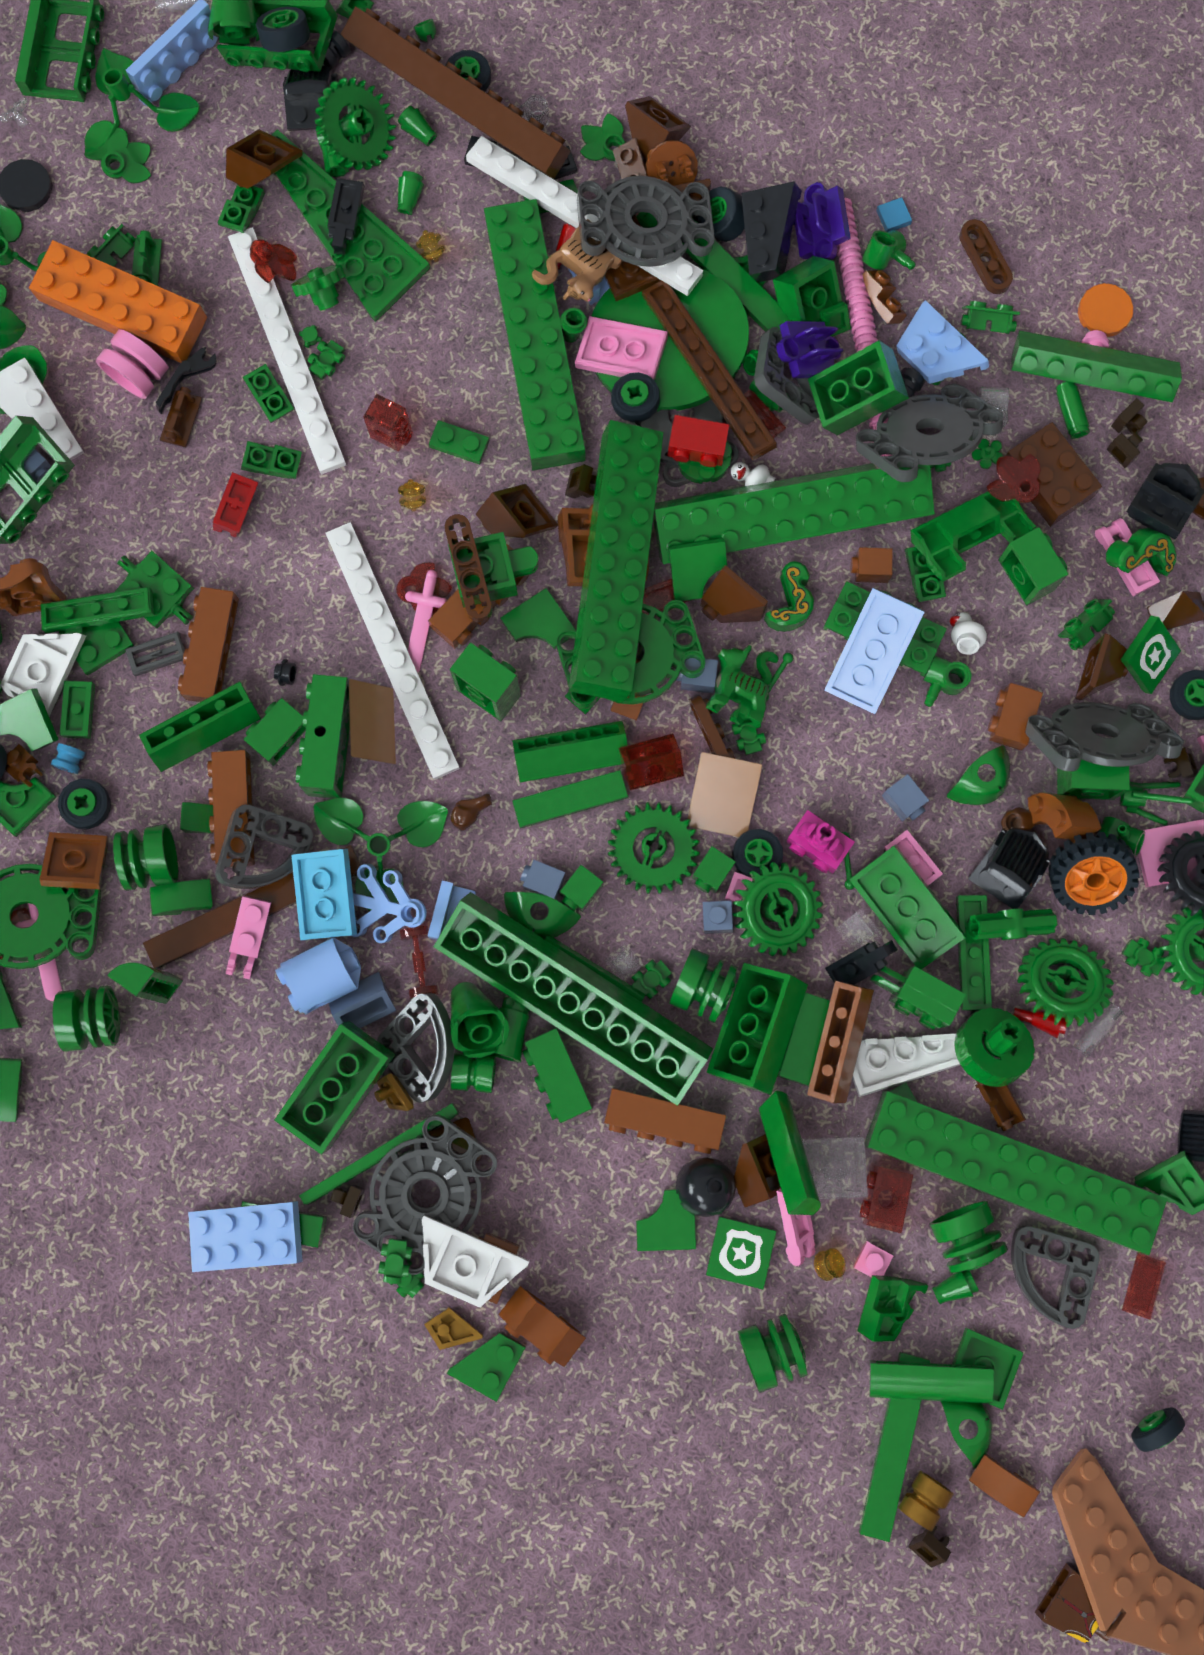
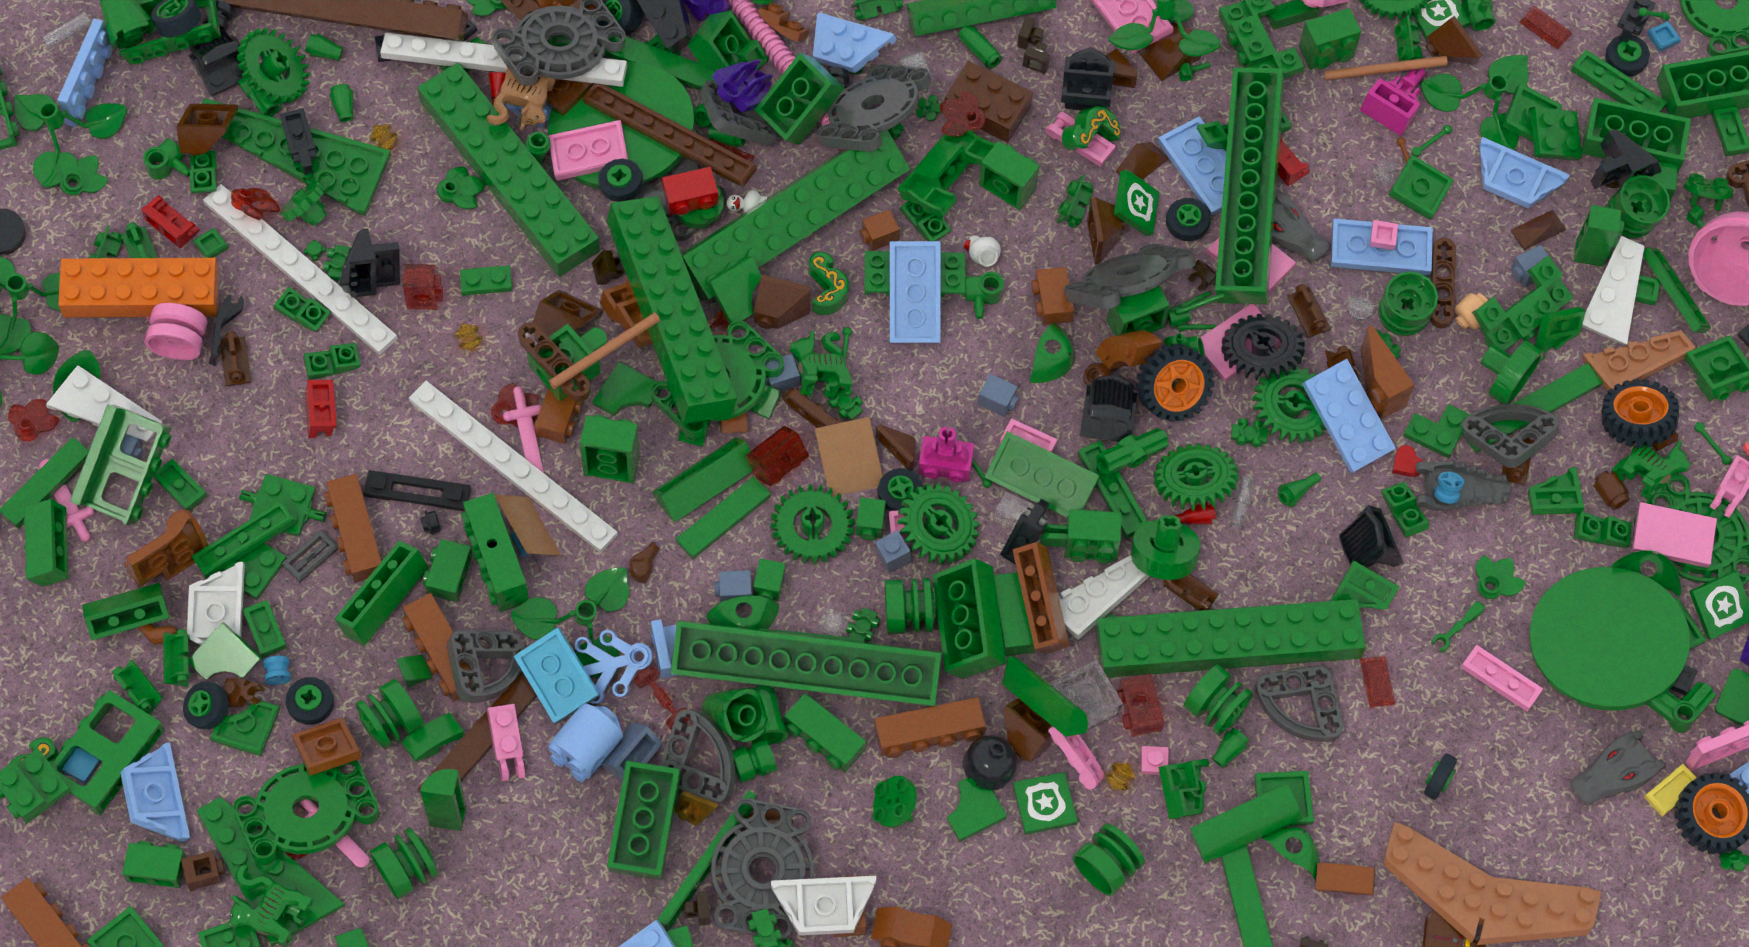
camera: 30 degrees left, 15 degrees down
(67, 524) = (179, 485): none -> green plate
(186, 244) = (169, 222): none -> red hinge
(215, 178) = (169, 154): none -> green piece
(215, 286) = (210, 244): none -> green tile
(320, 655) = (380, 485): none -> black container
(346, 378) = (370, 266): none -> black piece
(484, 333) = (462, 188): none -> green plate
(521, 580) = (604, 350): none -> nougat piece
(590, 1183) = (894, 801): none -> green plate
(672, 697) = (767, 401): none -> green slope
(781, 804) = (898, 444): none -> reddish brown slope
(925, 1501) = (1289, 914): pearl gold wheel -> none
(1157, 1042) = (1292, 492): none -> green cone

